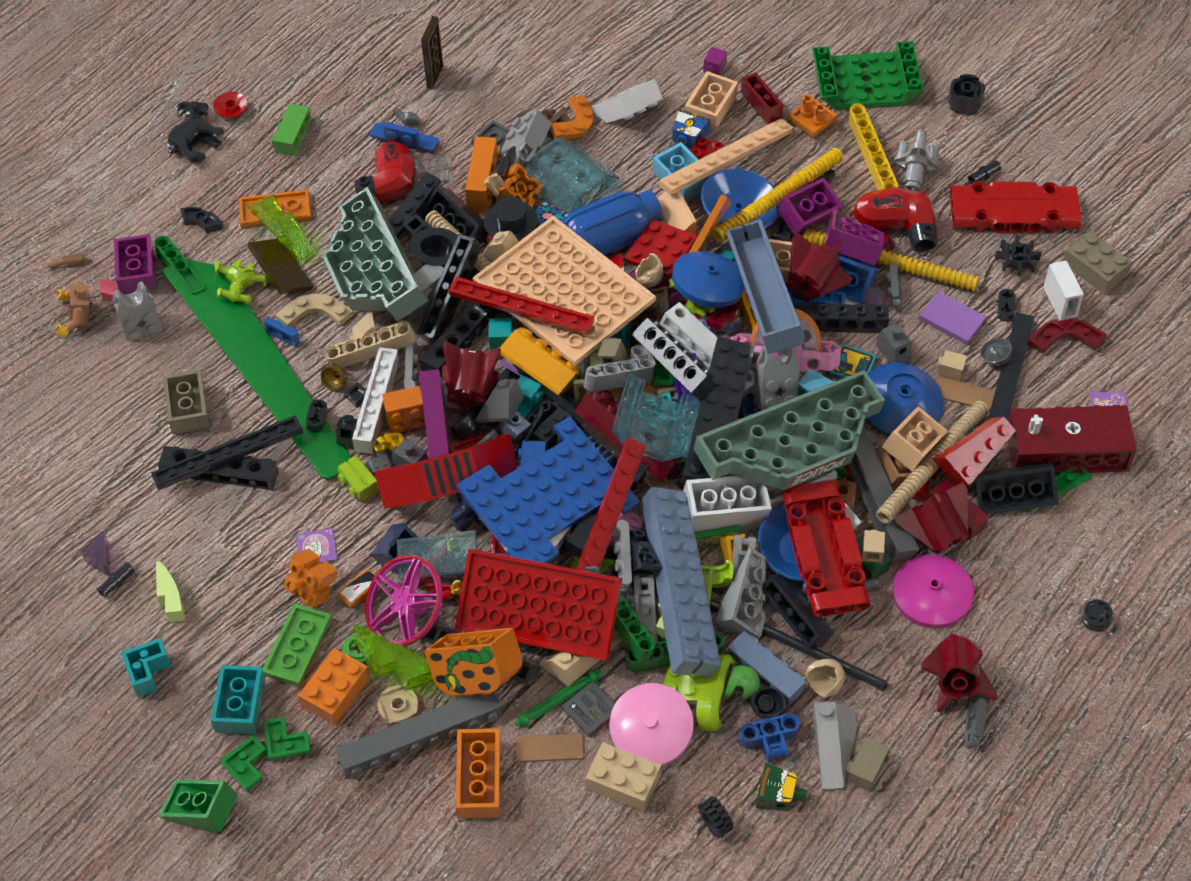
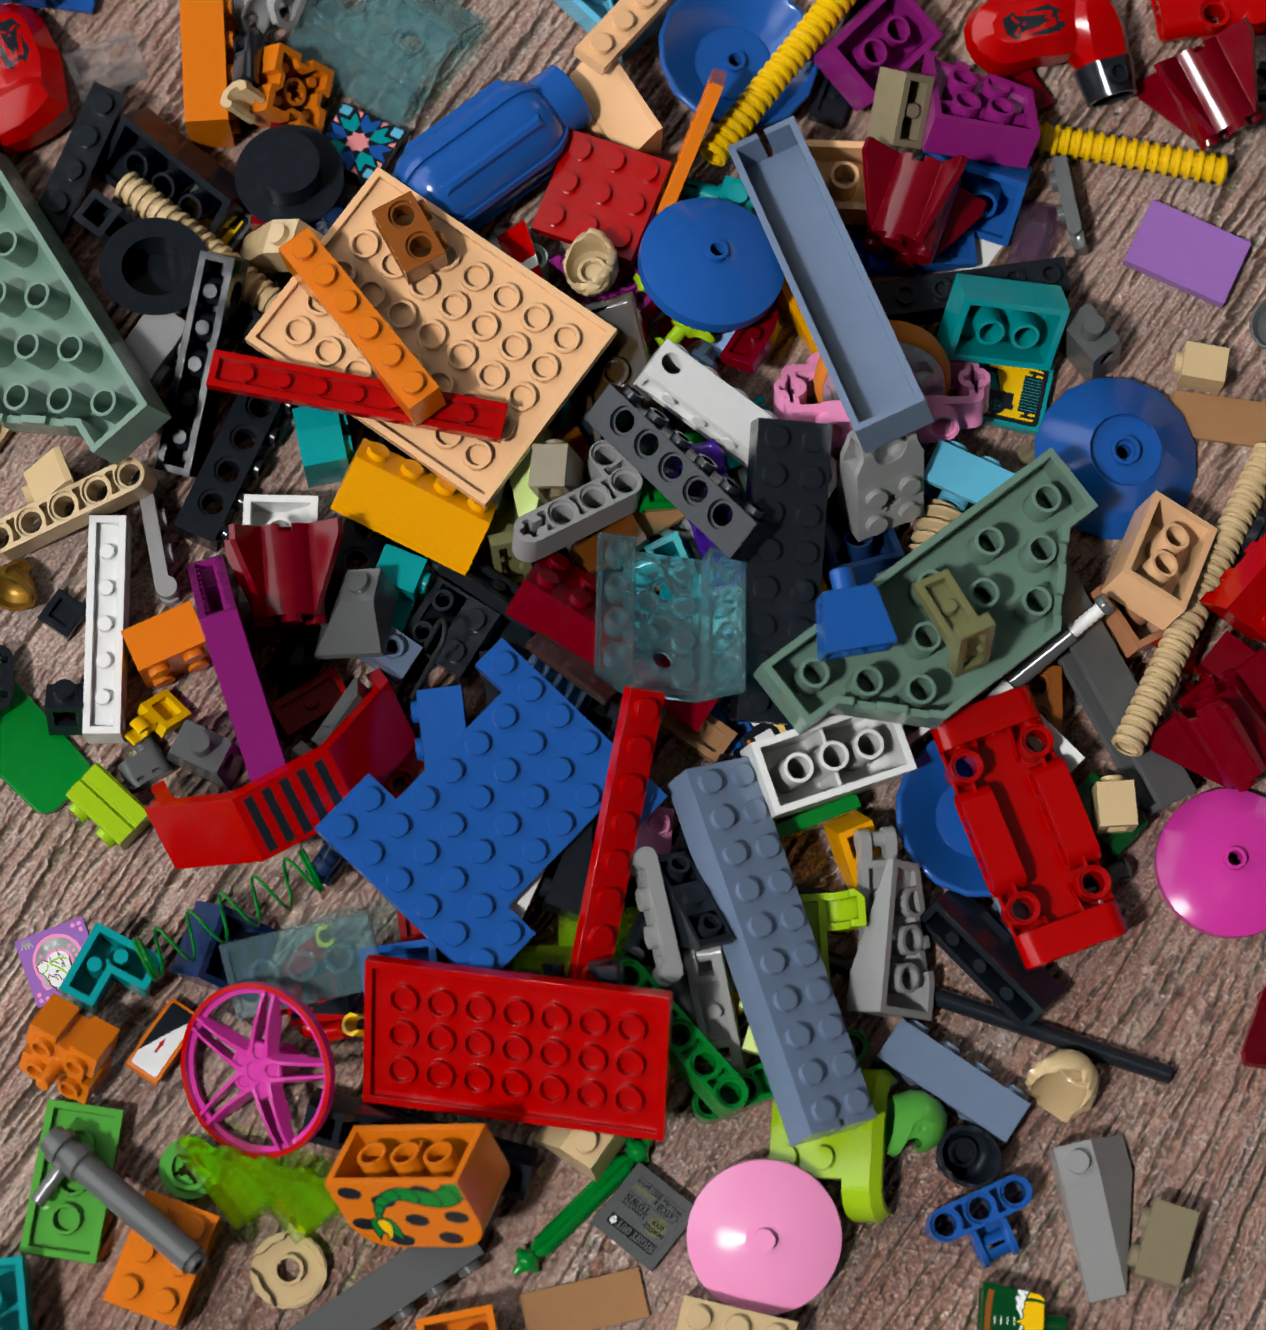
camera: 15 degrees left, 20 degrees up
(303, 631) = (81, 1164): none -> dark grey cylinder
(341, 543) = (105, 960): none -> teal brick
(449, 506) = (145, 956): none -> green piece
(540, 286) = (363, 325): none -> orange arch
(562, 243) = (405, 239): none -> dark orange brick
(747, 422) = (851, 619): none -> blue torso
(802, 432) = (963, 631): none -> olive bracket
(816, 225) = (900, 107): none -> dark tan brick
(852, 326) = (1003, 322): none -> teal brick
(856, 465) = (1058, 644): none -> dark grey piece
(972, 243) = (1208, 87): none -> dark red brick

